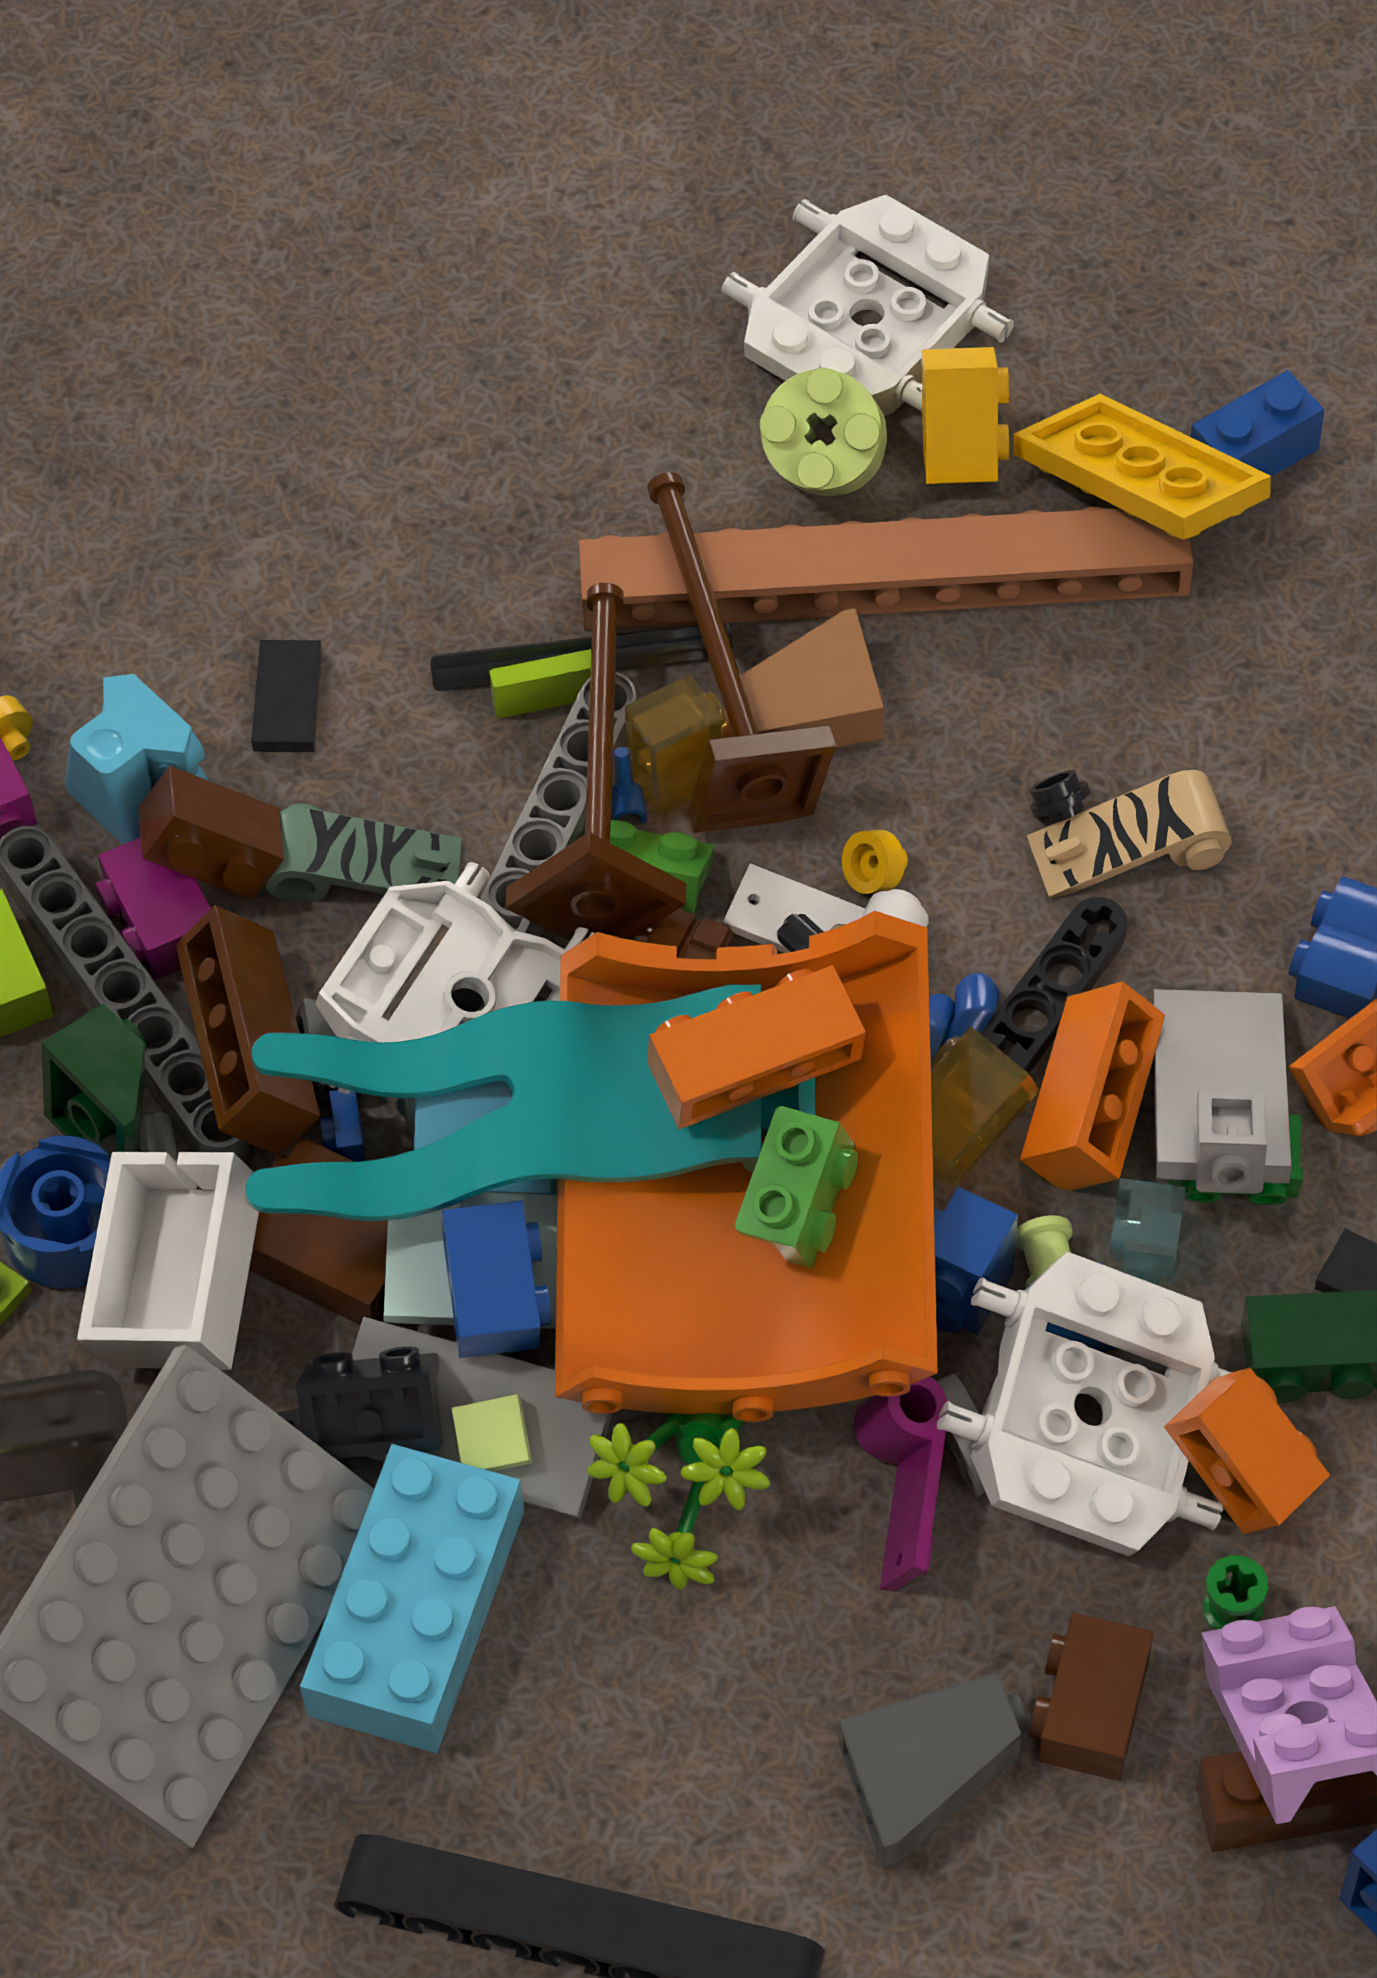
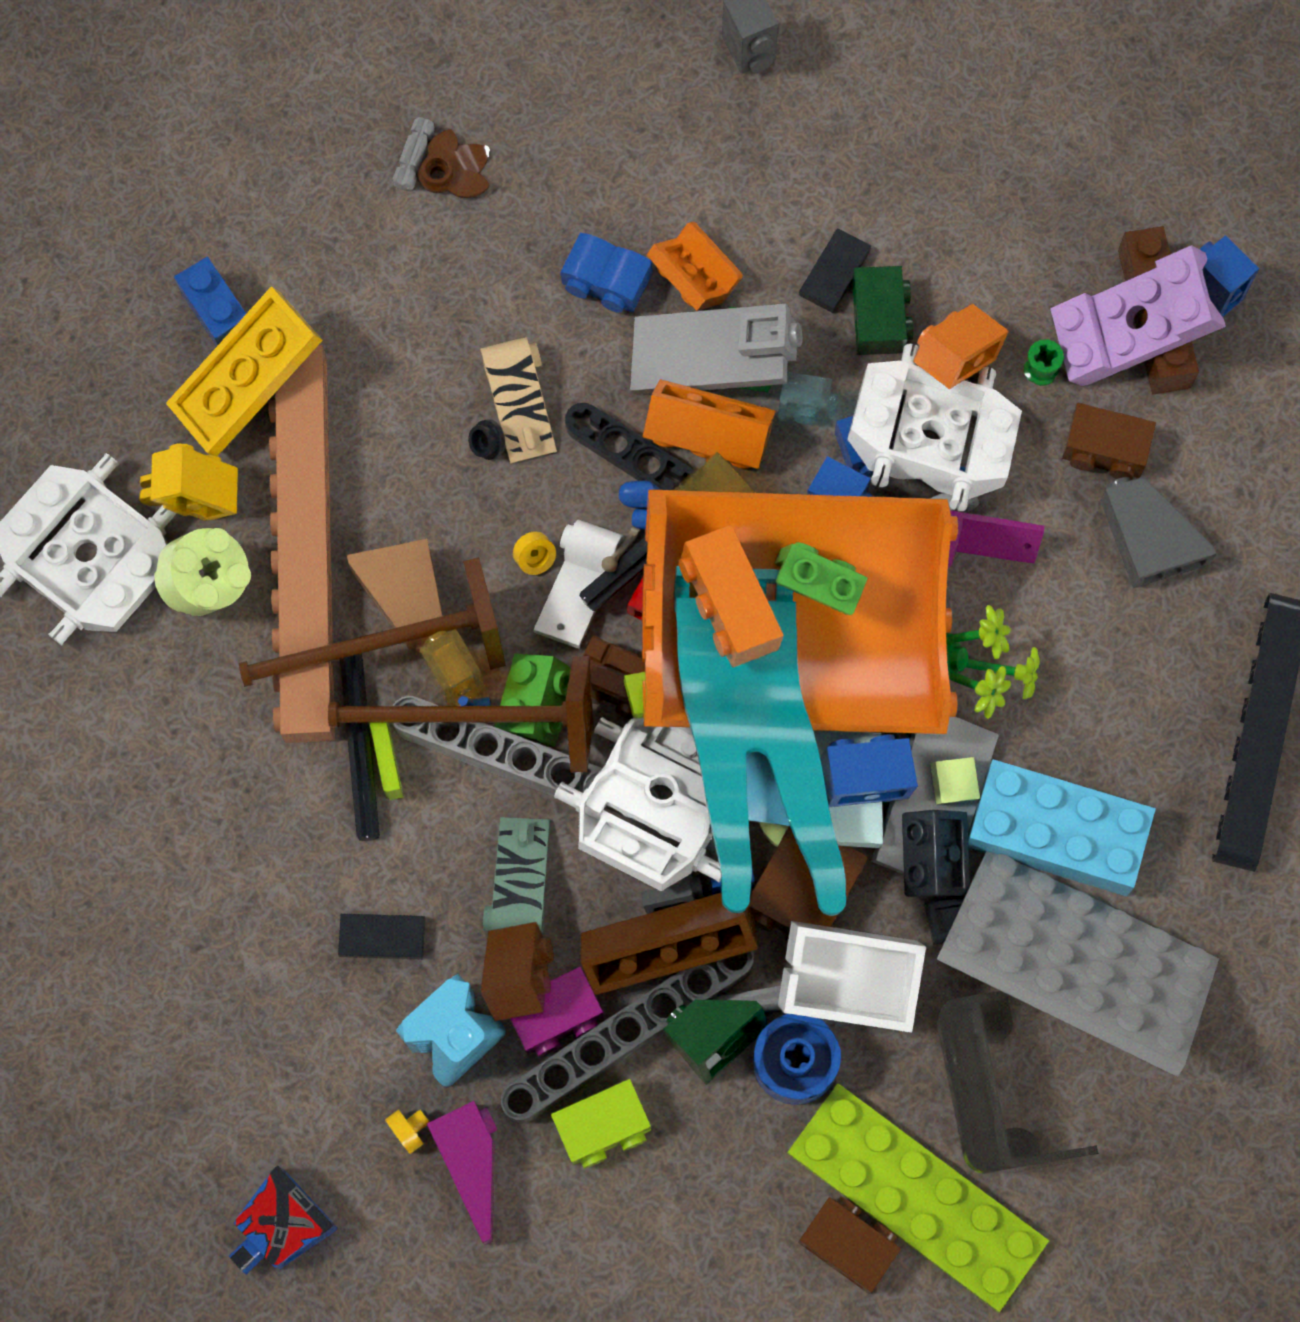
camera: 90 degrees left, 15 degrees up
(1043, 1242) = (813, 456): yellowish green bush -> none

